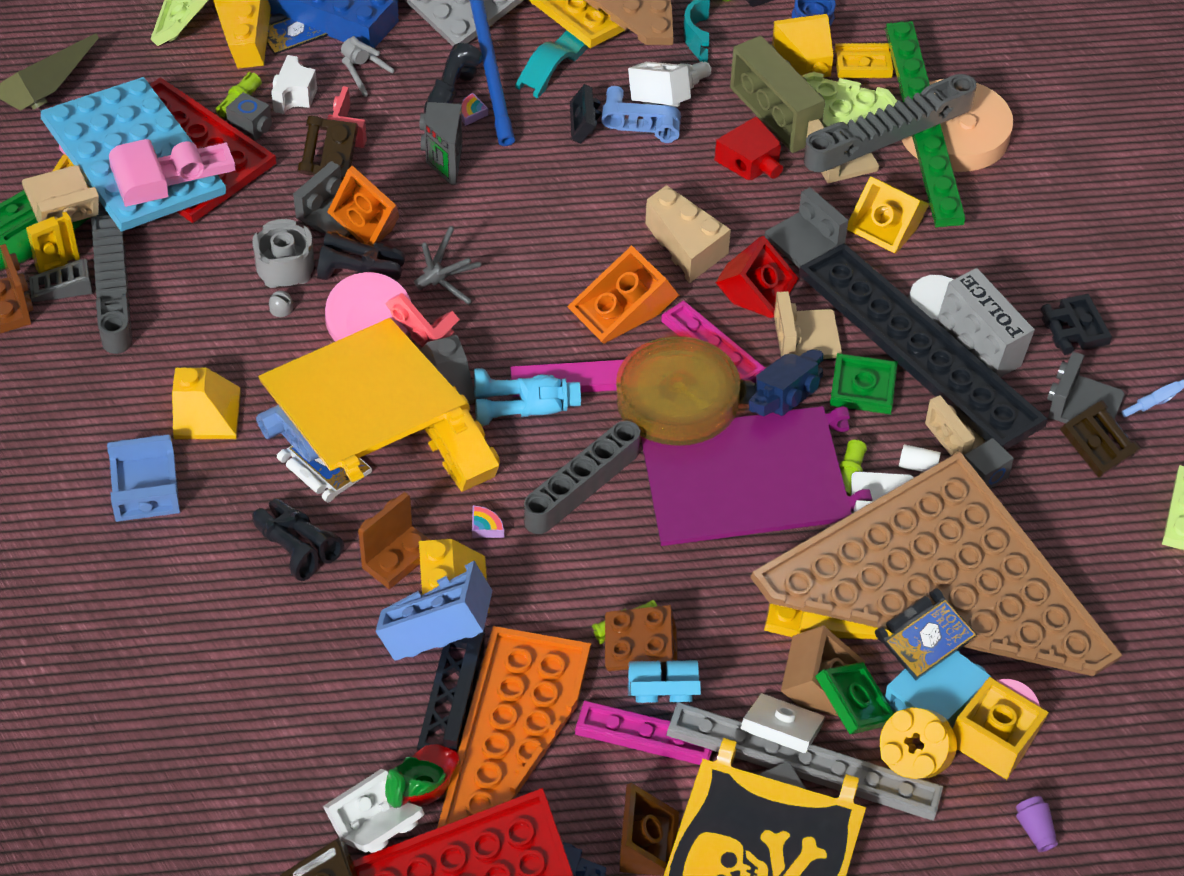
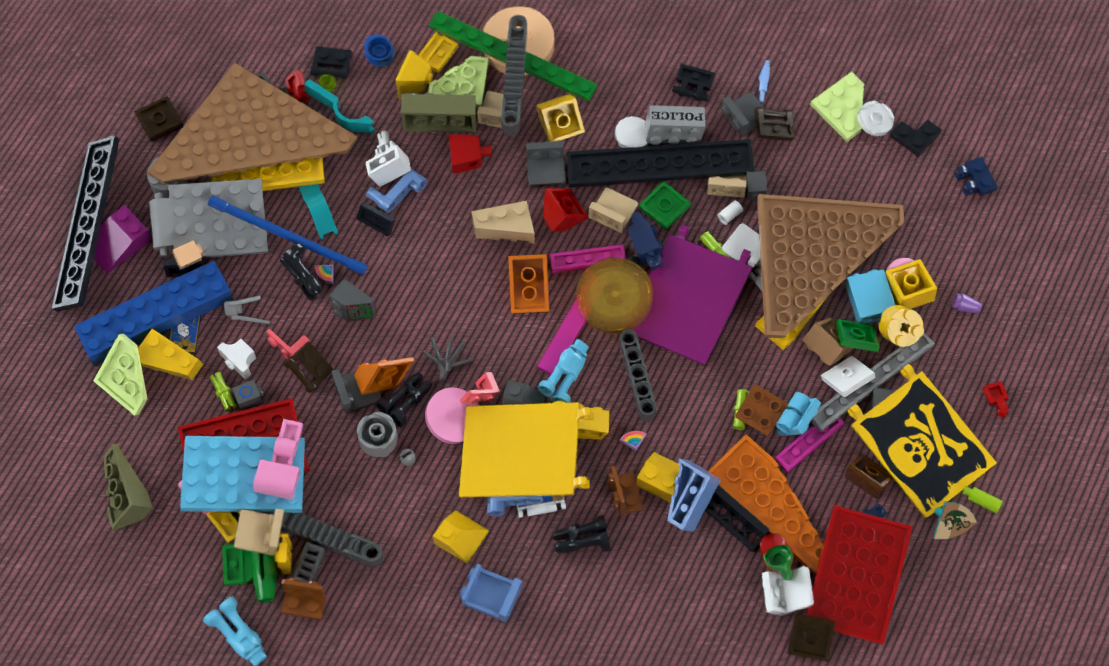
camera: 55 degrees left, 15 degrees up
(926, 634) = (846, 281): piece -> none

